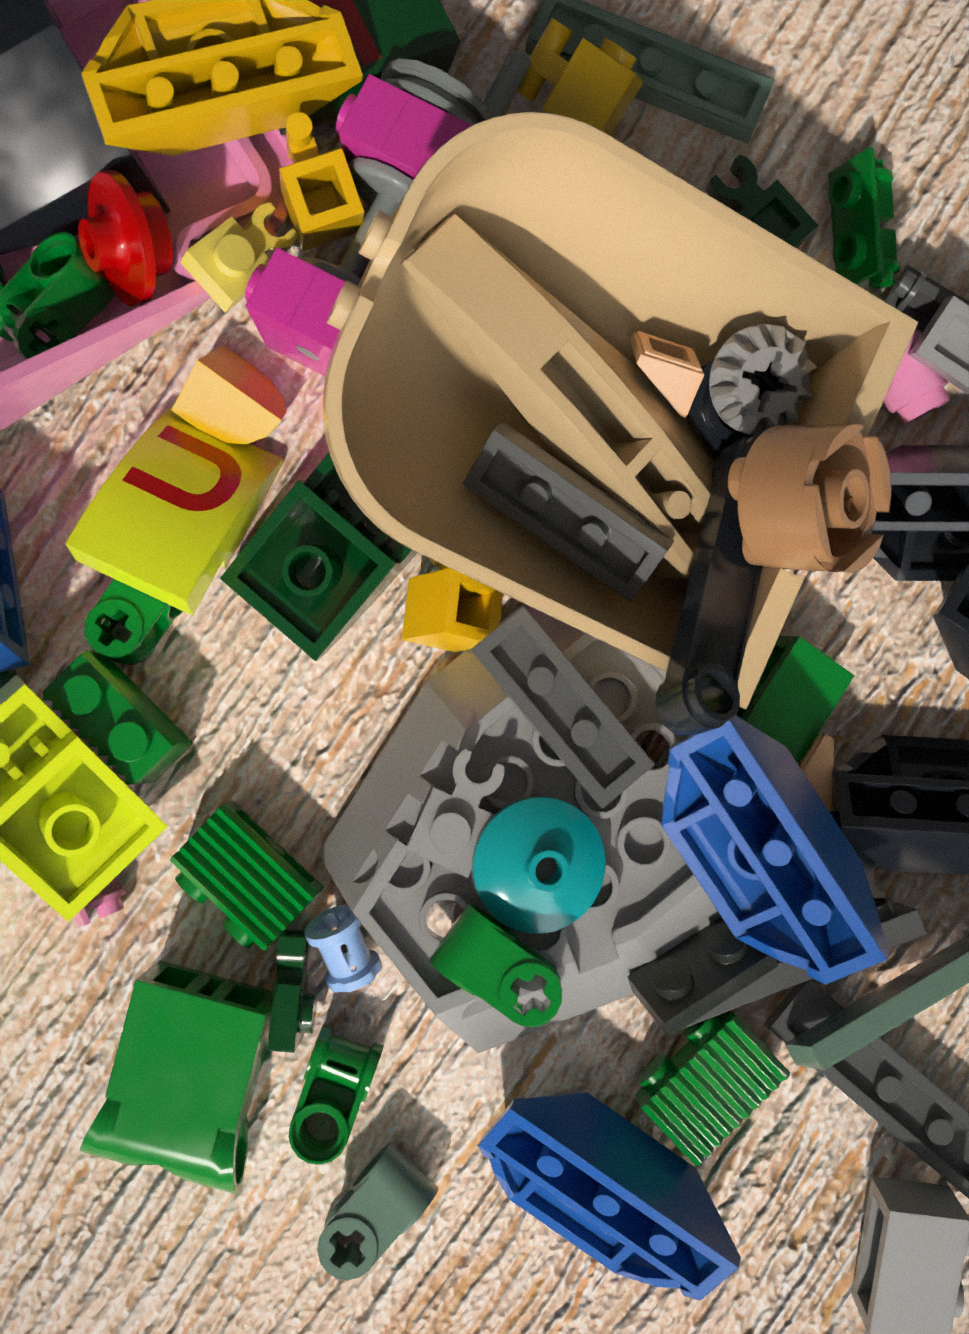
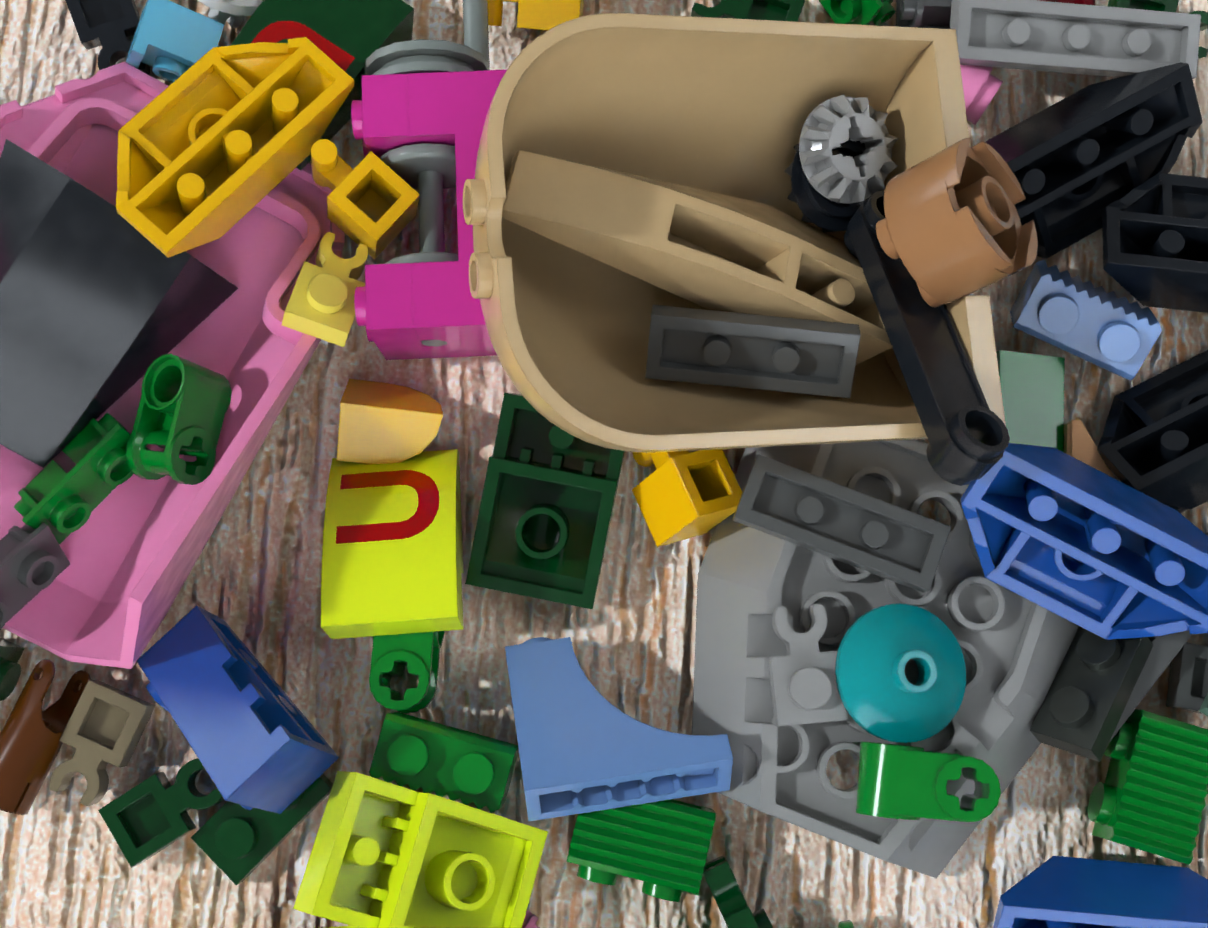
camera: 25 degrees left, 5 degrees down
(125, 237) = (223, 330): red piece -> none
(232, 779) = (589, 754): none -> medium blue arch
(339, 975) = (764, 852): light blue bush -> none
(670, 368) = (764, 181): light nougat slope -> none
(893, 653) = (1085, 320): none -> medium blue brick

